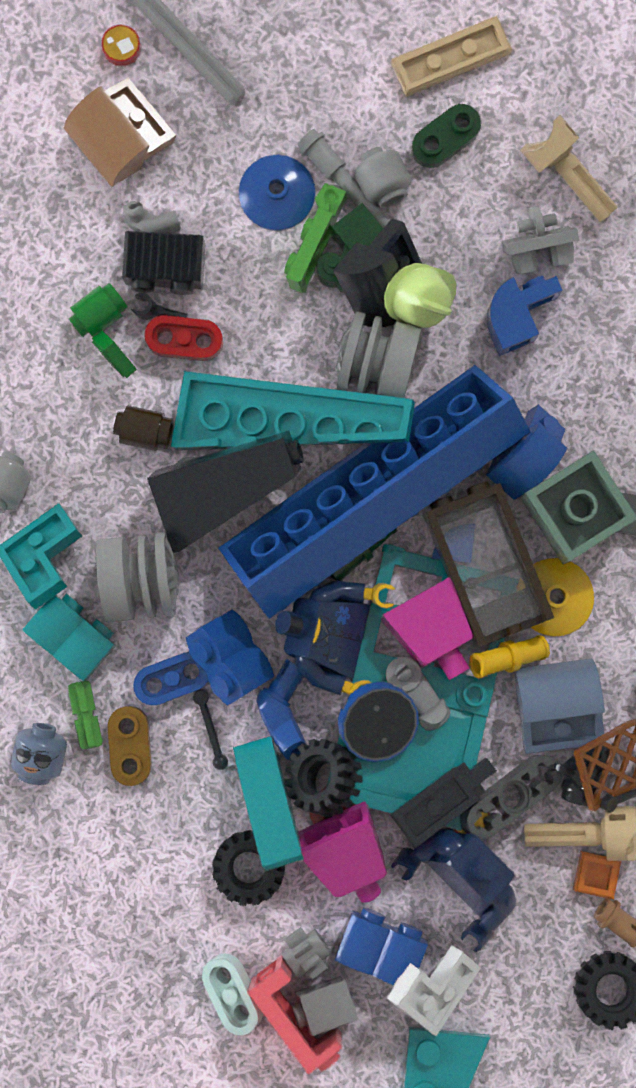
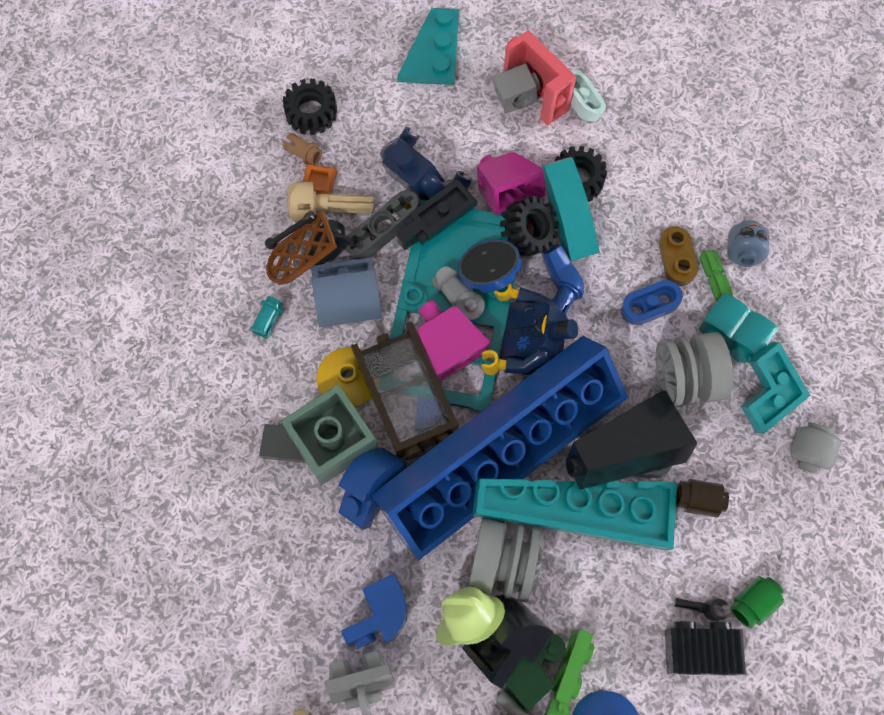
camera: 175 degrees right, 15 degrees down
(113, 354) = (738, 559): green tile -> none
(144, 221) = (724, 691): light grey arm -> none
(184, 339) = (675, 580): red plate -> none
(201, 698) = (607, 248): black hinge -> none
(229, 657) = (609, 314): blue brick -> none
(306, 953) = (531, 120): light grey gear -> none
(378, 947) = (477, 125): blue brick -> none
(434, 998) = (442, 89): white plate -> none
(509, 656) = (386, 323): yellow pin -> none

